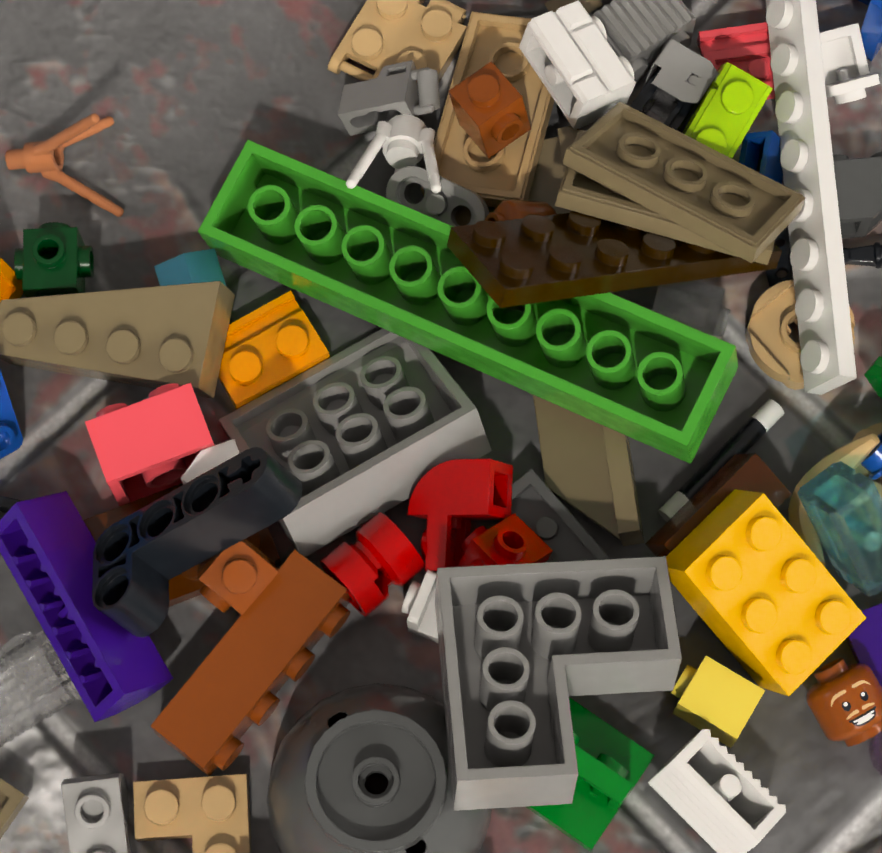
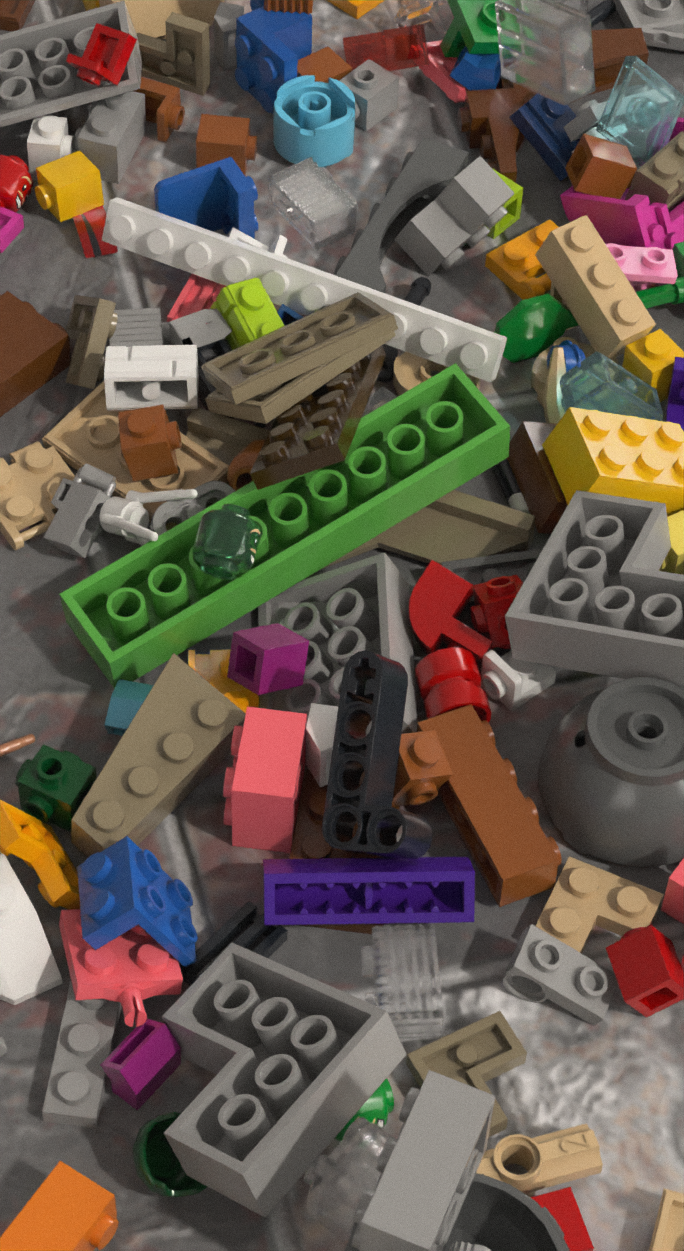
camera: 65 degrees left, 20 degrees down
(294, 370) = (268, 658): none -> magenta brick
(369, 253) = (226, 542): none -> clear green head

